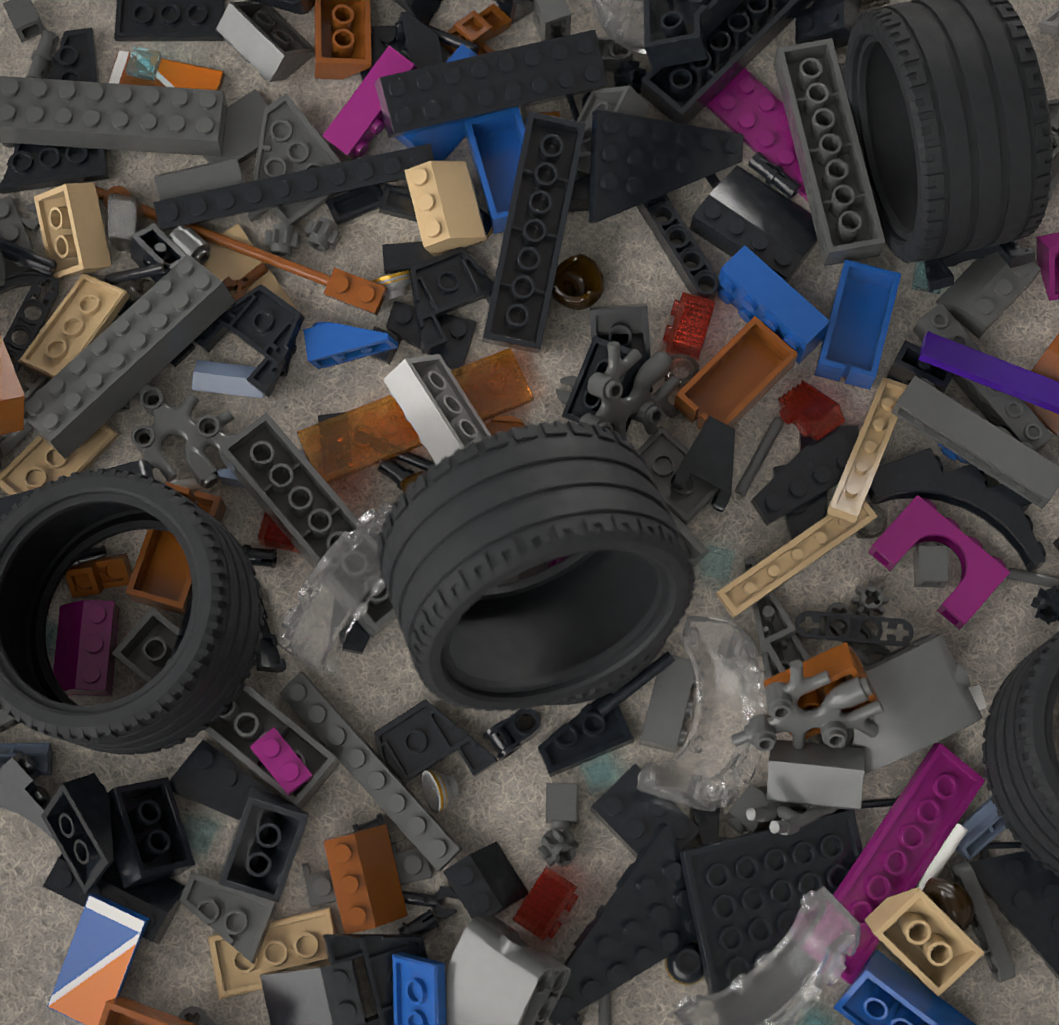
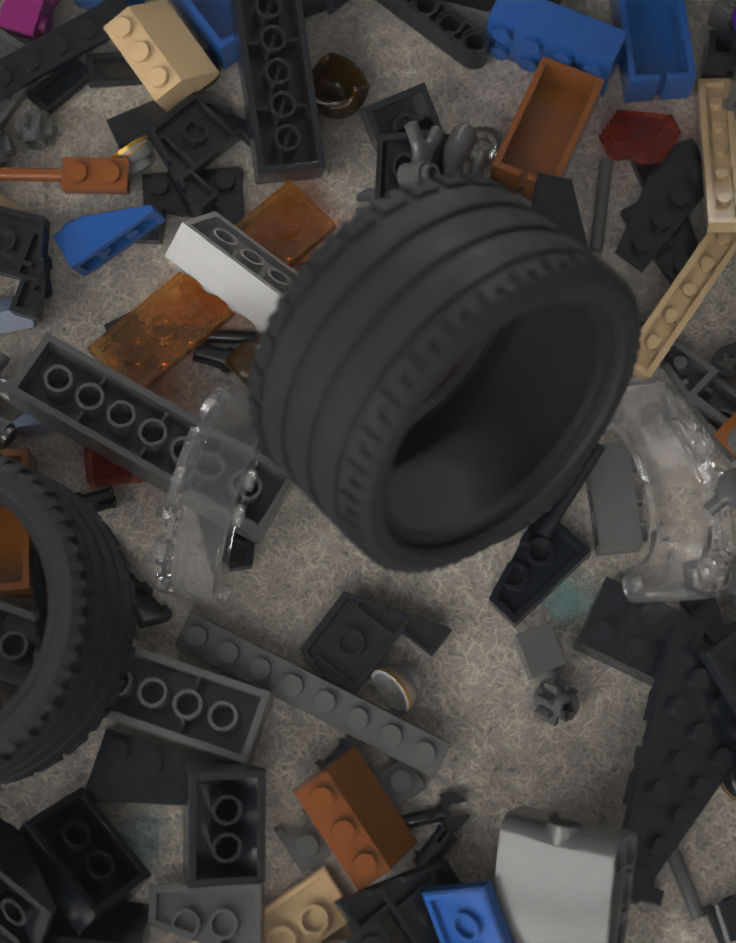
camera: 20 degrees left, 0 degrees up
(281, 761) = (209, 719): magenta plate -> none
(486, 882) = (490, 772): black slope -> none
(512, 733) = (454, 594): black piece -> none
(545, 905) = (567, 770): clear red brick -> none
(689, 325) = (473, 92): clear red brick -> none

